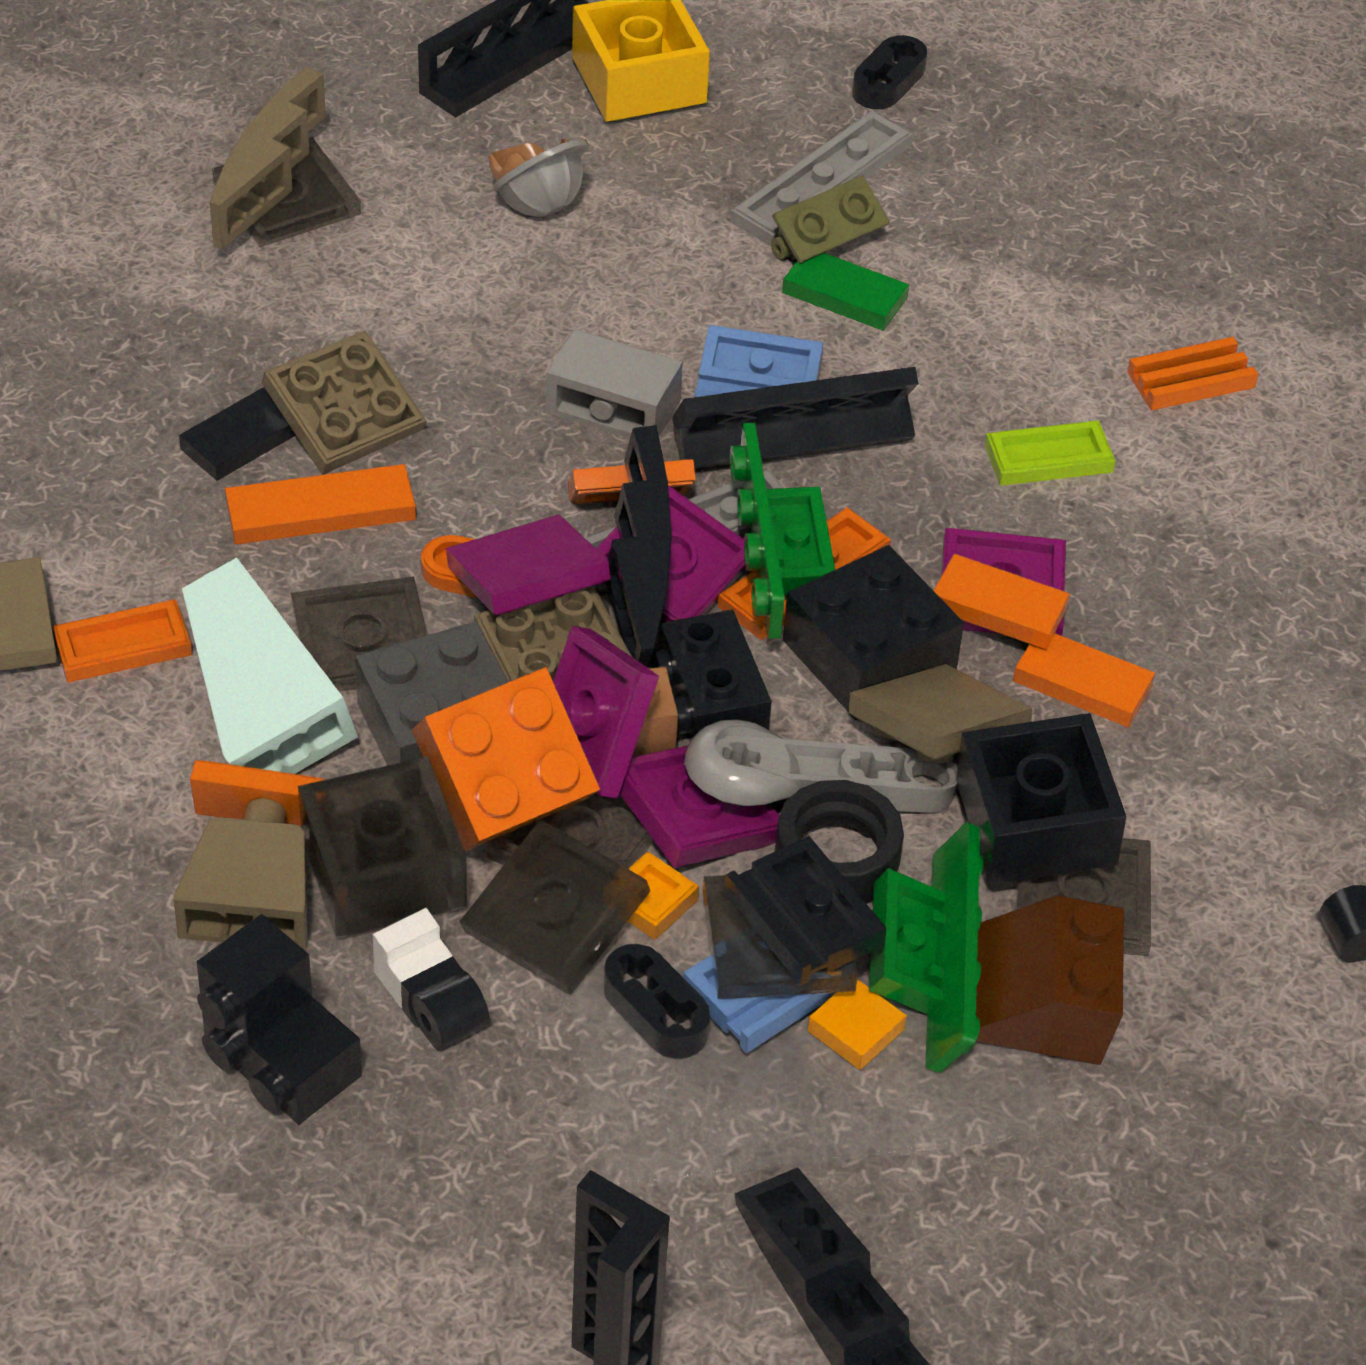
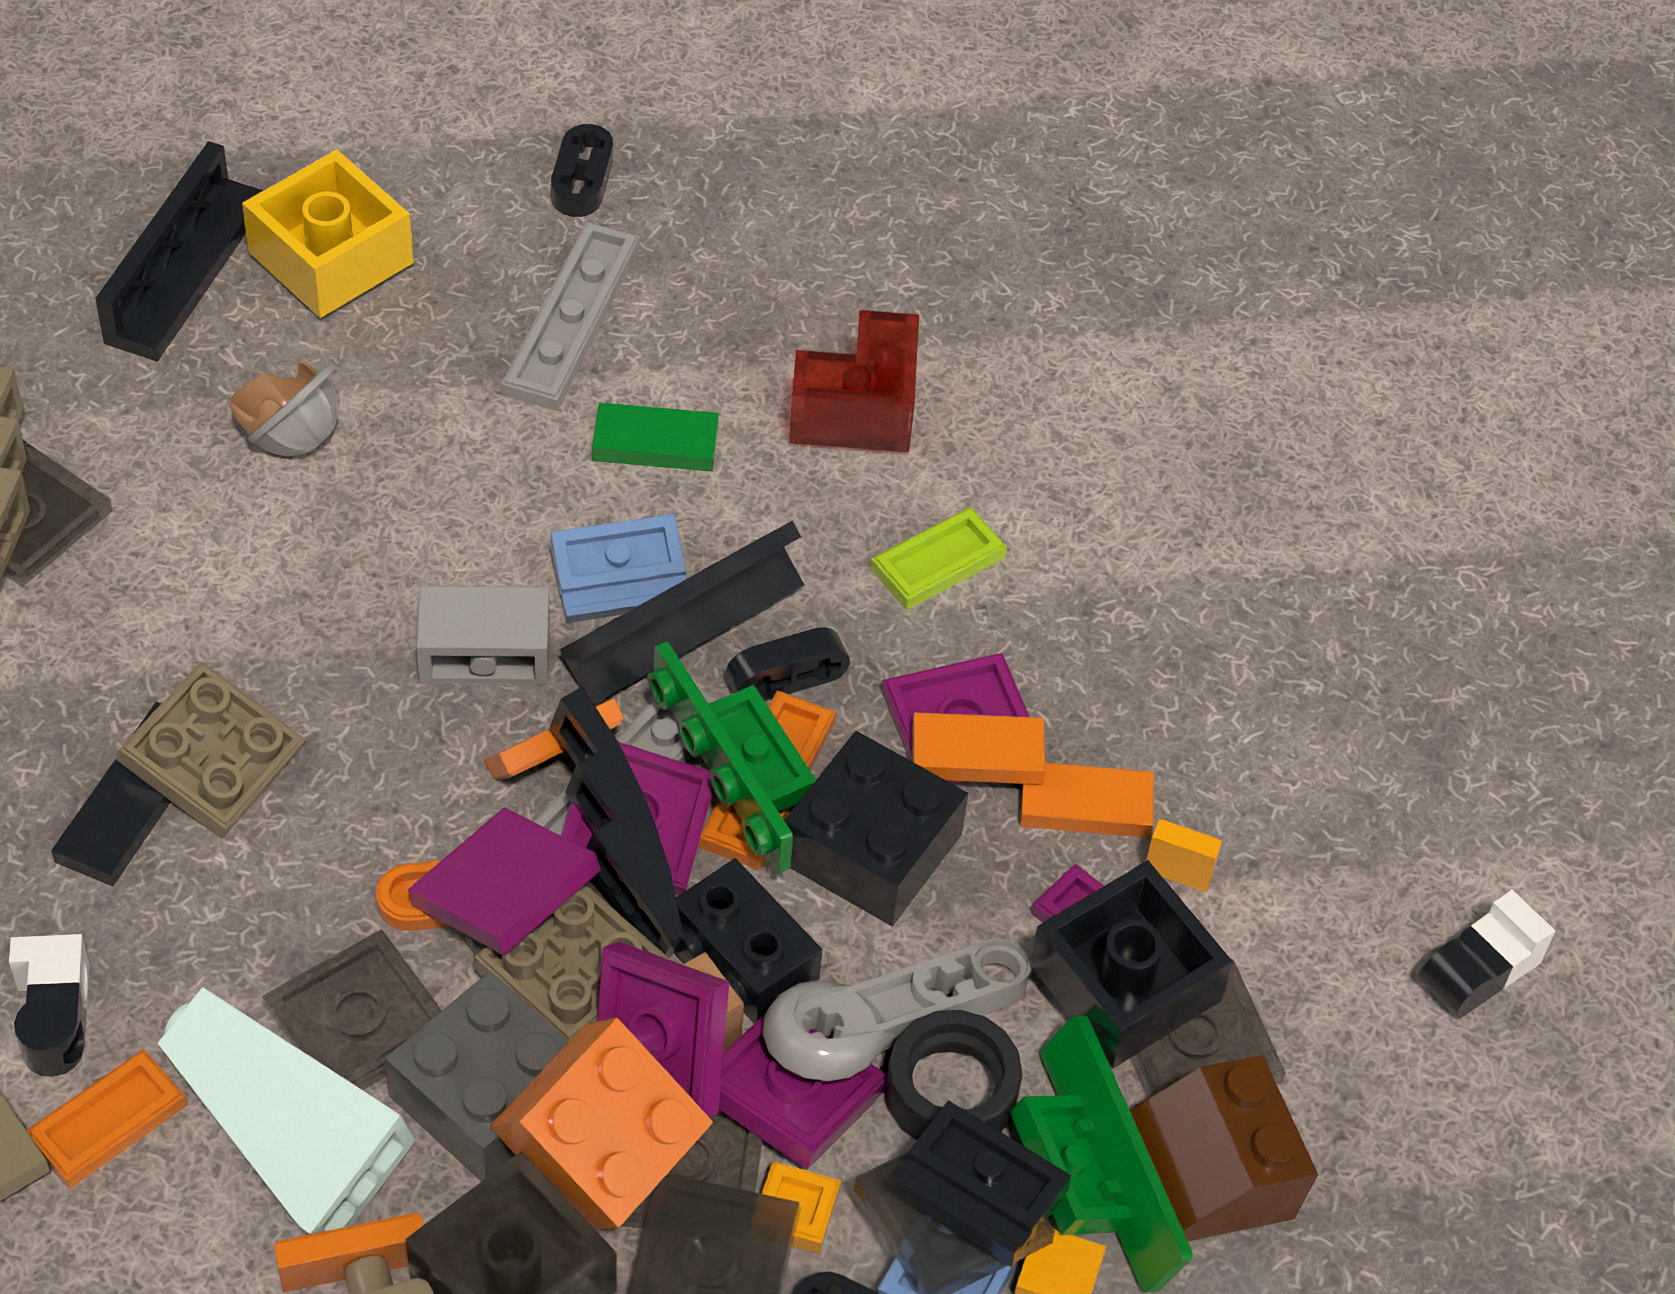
camera: 25 degrees left, 5 degrees up
(124, 540) = (55, 1011): none -> leg
(320, 504) = (239, 877): orange tile -> none
(827, 221) = (608, 369): olive hinge -> none
(868, 488) = (790, 663): none -> black beam
(934, 709) = (983, 896): dark tan tile -> none
(1040, 302) = (860, 396): none -> clear red brick
(1144, 743) = (1184, 854): none -> light orange tile
(1189, 367) = (1049, 384): orange tile -> none

